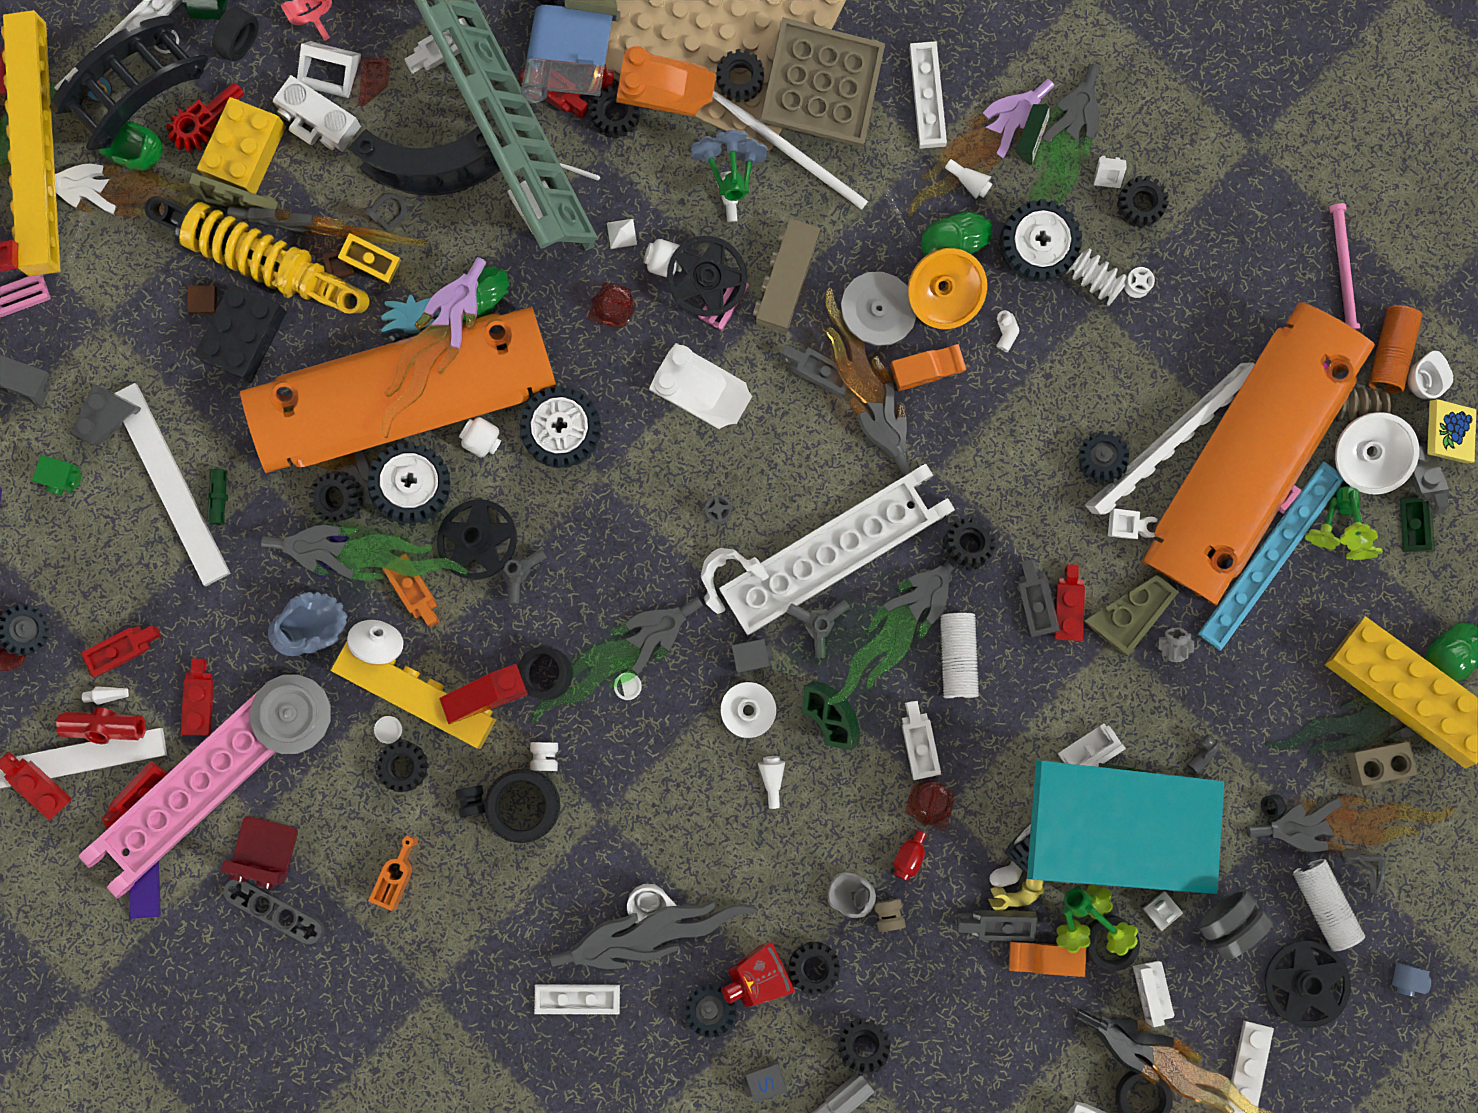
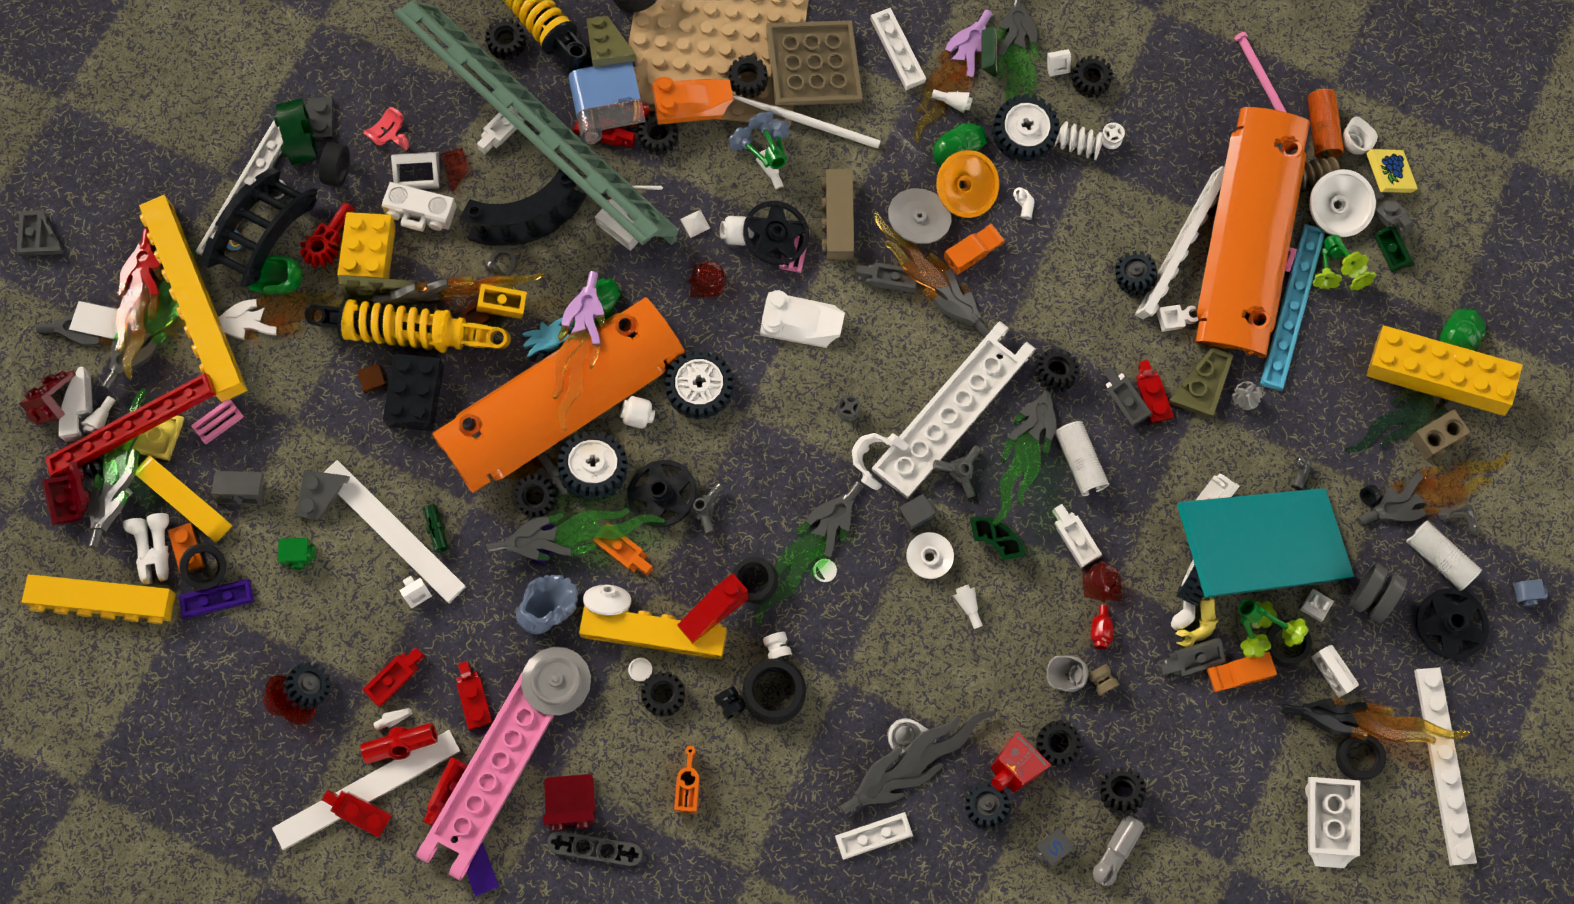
camera: 20 degrees left, 10 degrees down
(171, 562) = (415, 591): none -> white tile

